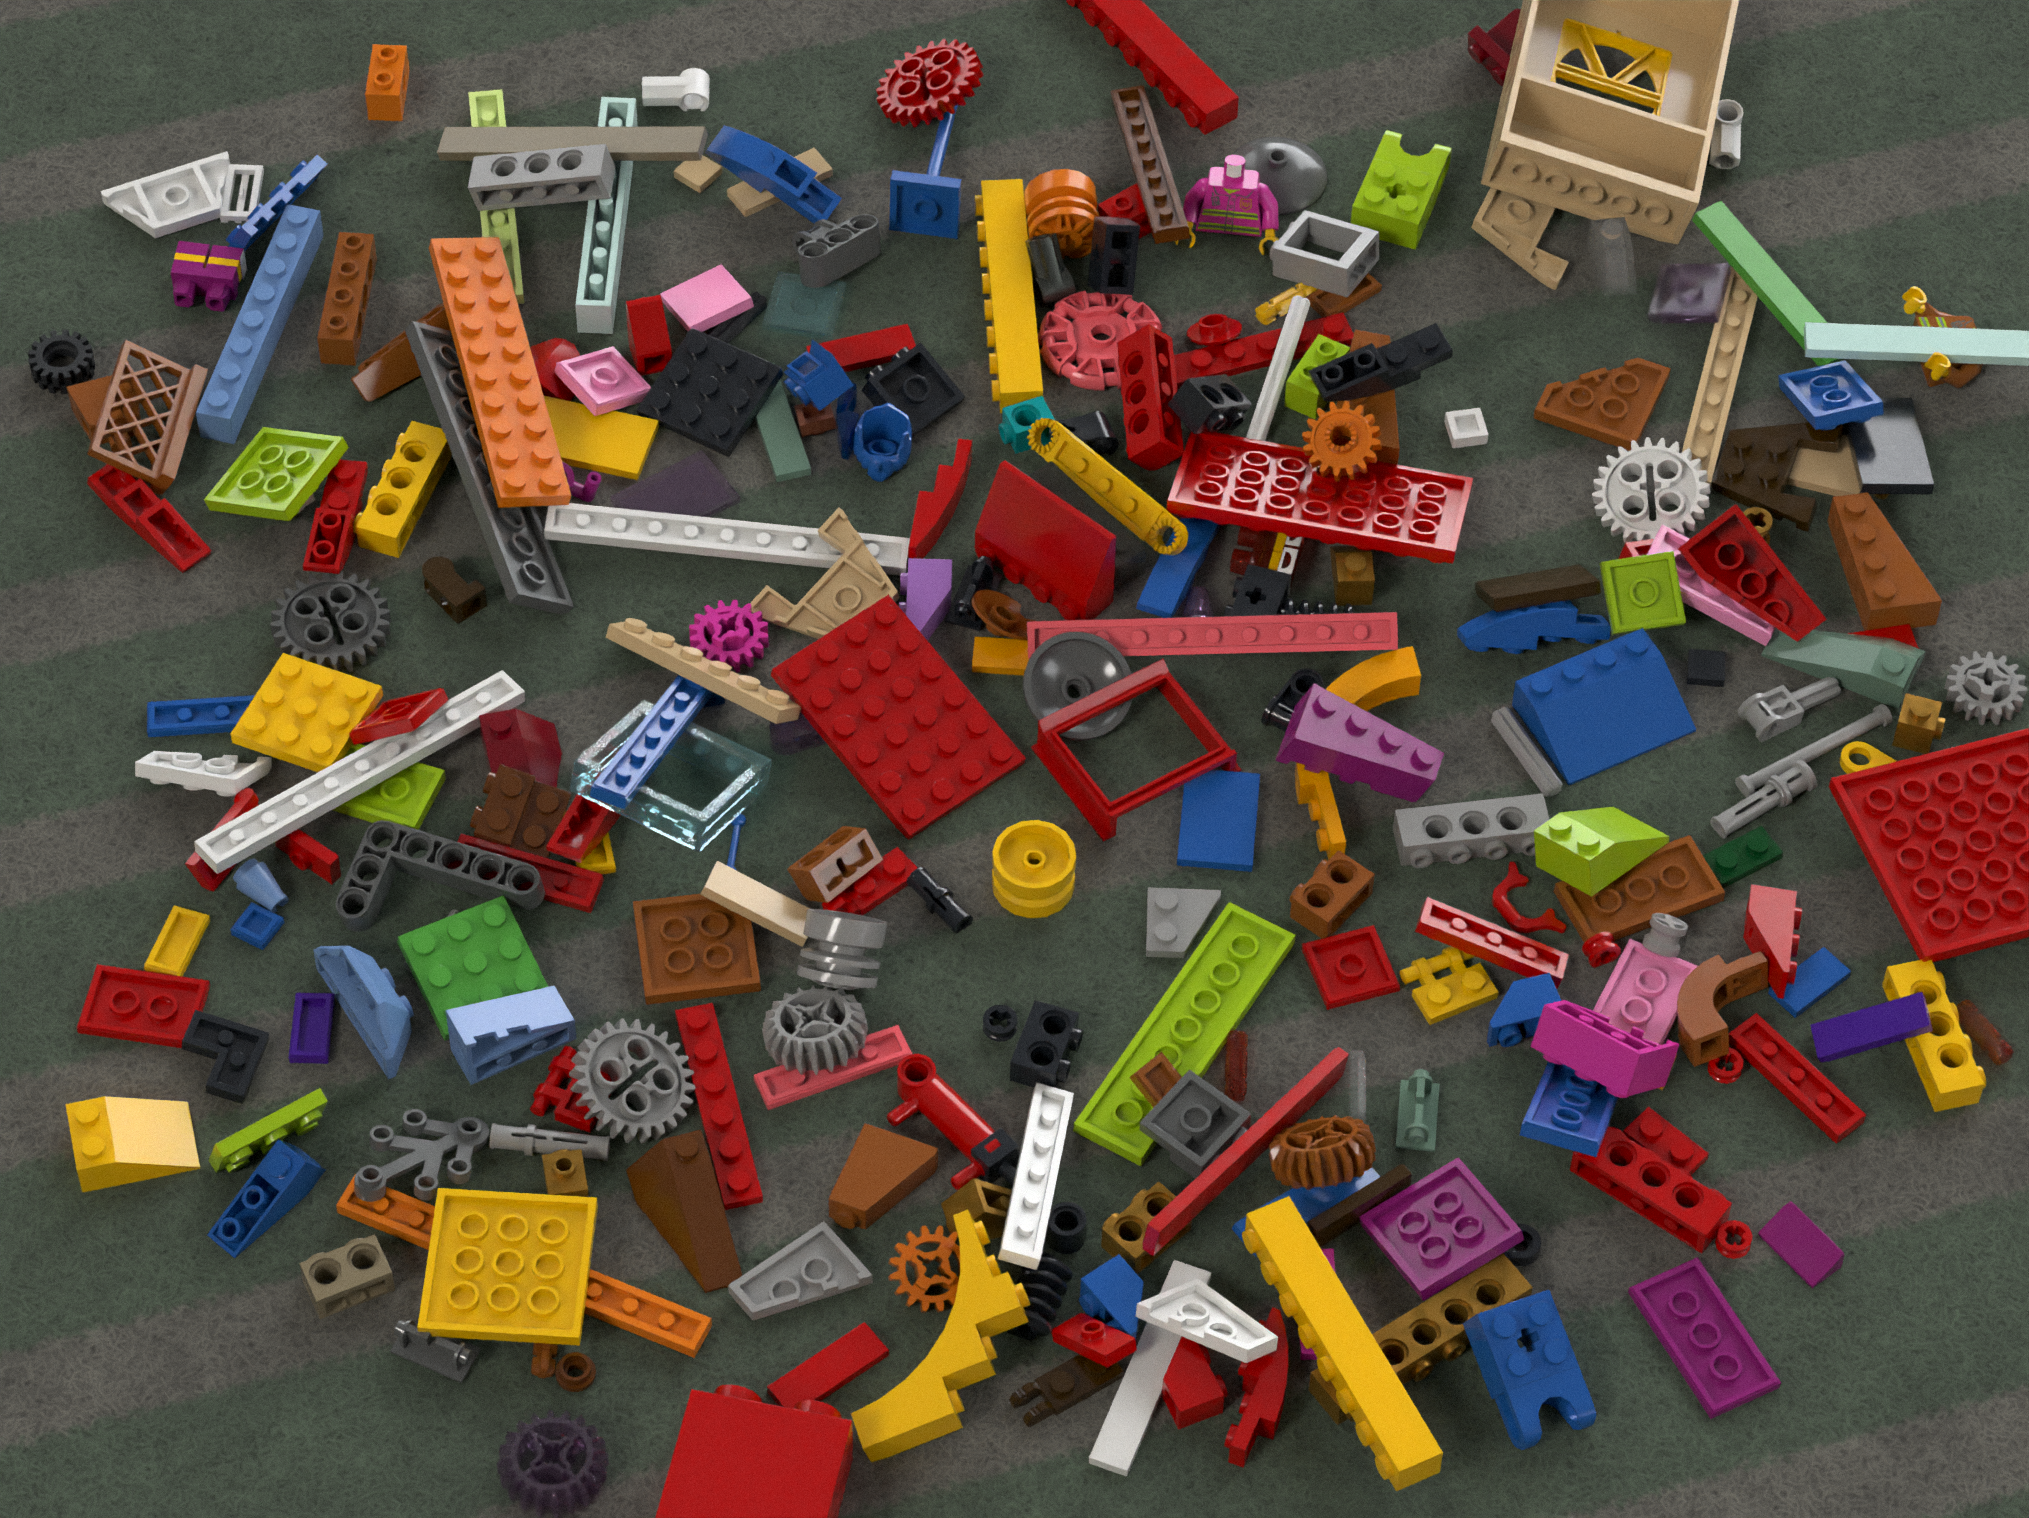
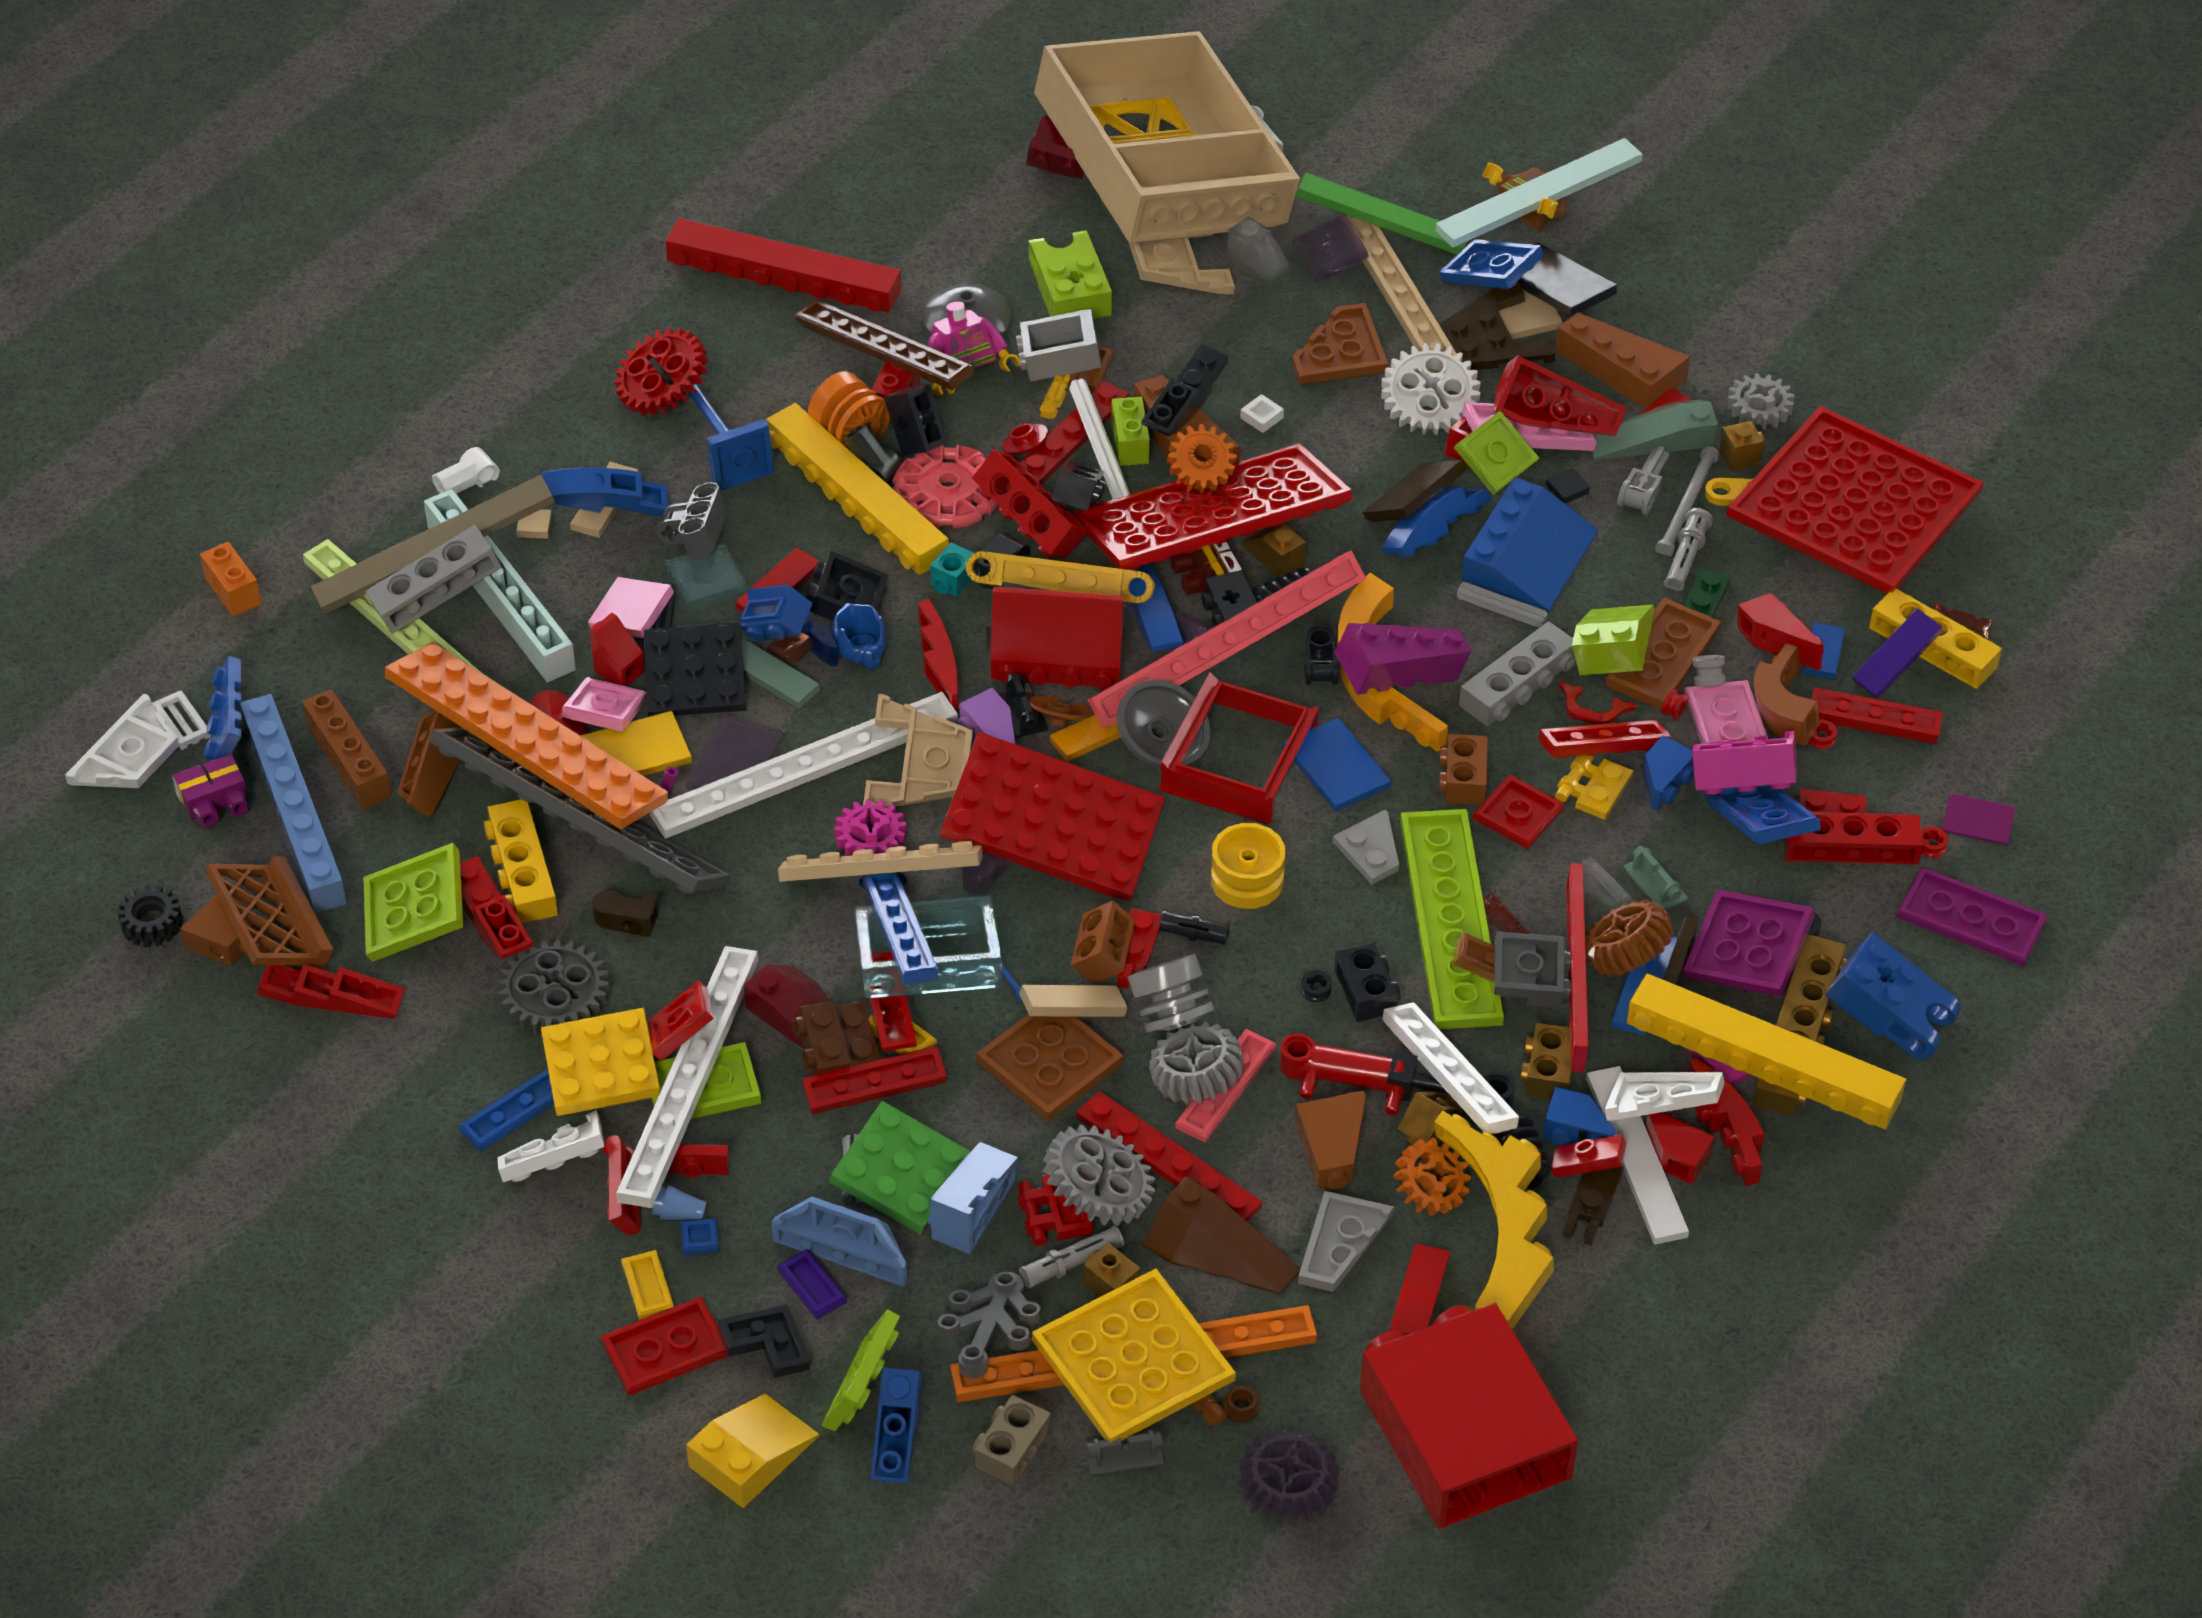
camera: 35 degrees left, 5 degrees down
(430, 867) = (810, 1113): dark grey beam -> none

